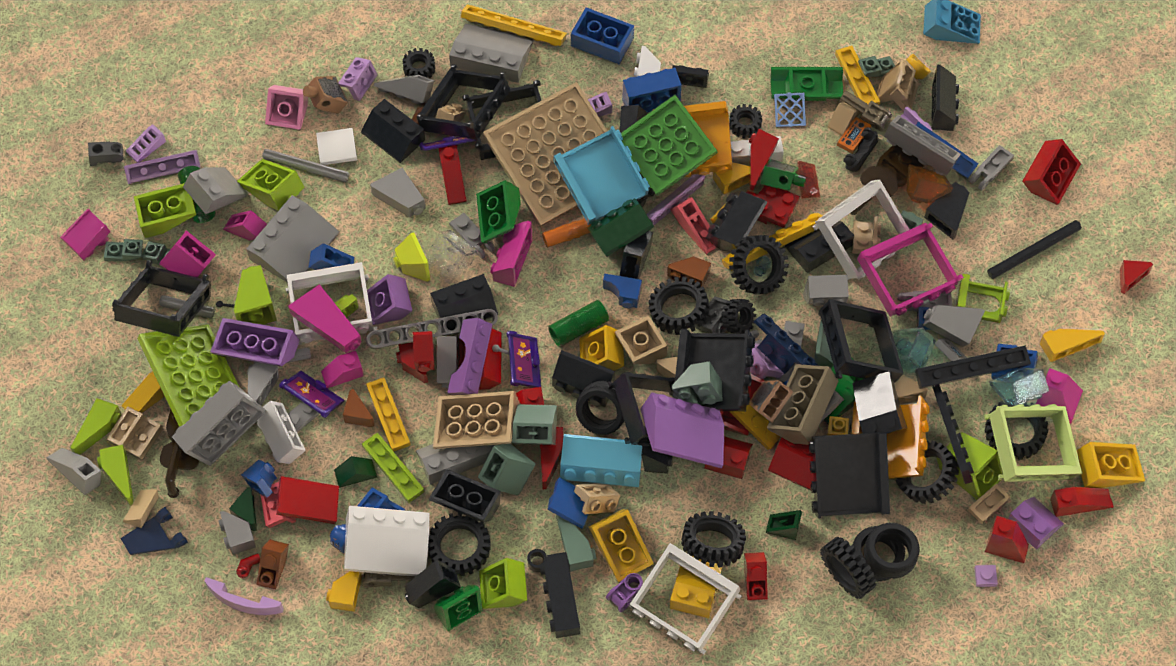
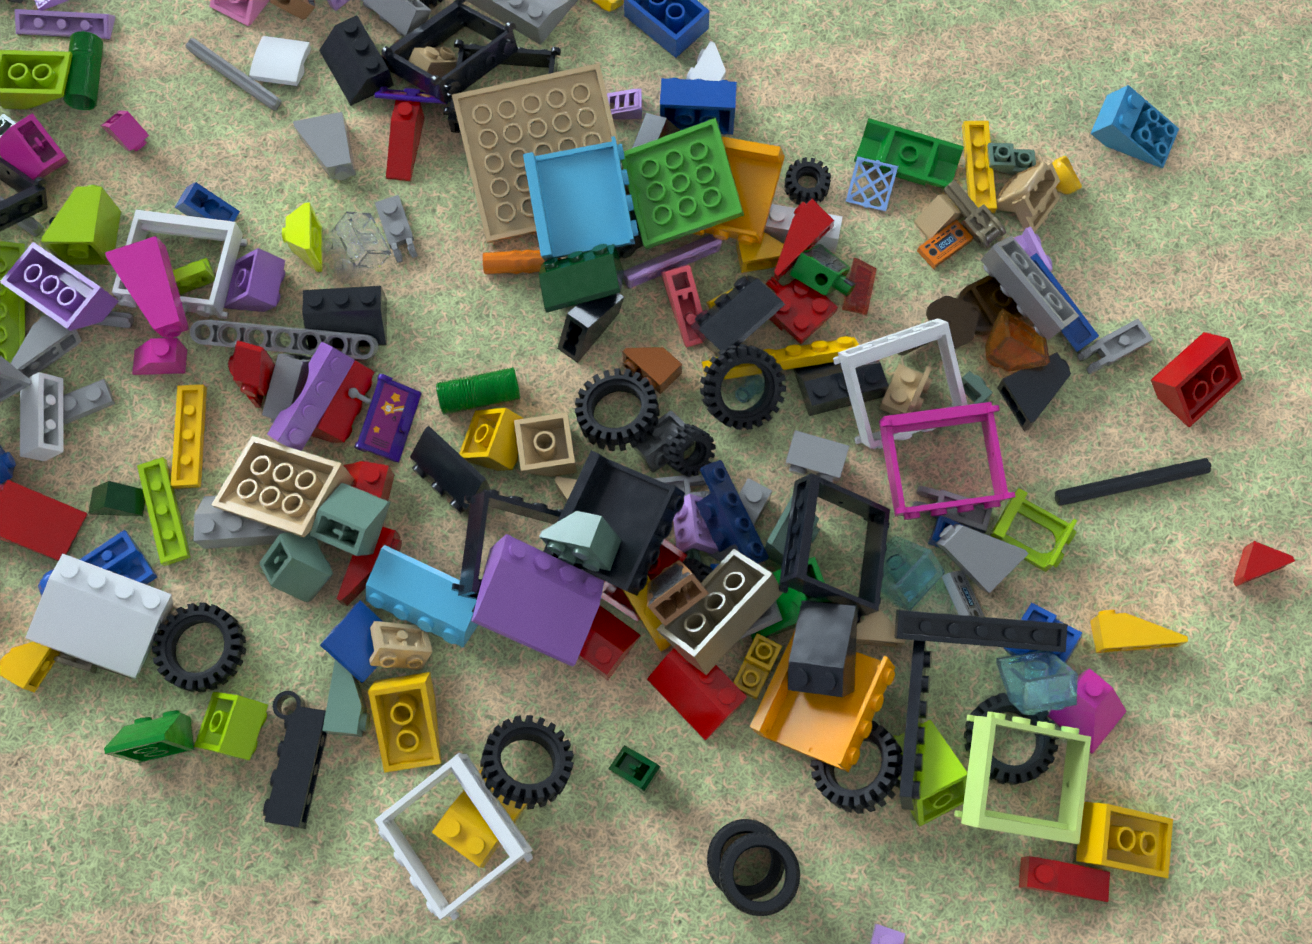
camera: 20 degrees right, 10 degrees up
(213, 188) = (101, 68): light grey slope -> none
(271, 183) = (180, 86): lime slope -> none
(289, 239) = (168, 160): light grey slope -> none
(311, 393) = (103, 373): door -> none
(356, 412) = (150, 417): dark orange slope -> none
(431, 584) = (134, 697): black slope -> none
(466, 496) = (227, 589): black slope -> none
(497, 210) = (435, 204): green slope -> none
(512, 254) = (433, 270): dark pink slope -> none
(588, 419) = (435, 526): black tyre -> none
(622, 594) = (380, 794): medium lavender piece -> none
(625, 288) = (561, 365): blue arch -> none
(692, 76) = (759, 100): black bracket -> none
(755, 575) = (566, 831): red slope -> none
(848, 567) = (690, 875): black tyre -> none
(850, 474) = (748, 732): black panel -> none
(856, 160) = (932, 281): black piece -> none
(944, 100) = (1085, 232): black slope -> none
(989, 503) = (930, 837): tan plate -> none
(1007, 540) = (933, 908): red slope -> none
(1035, 521) = (986, 888): medium lavender slope -> none

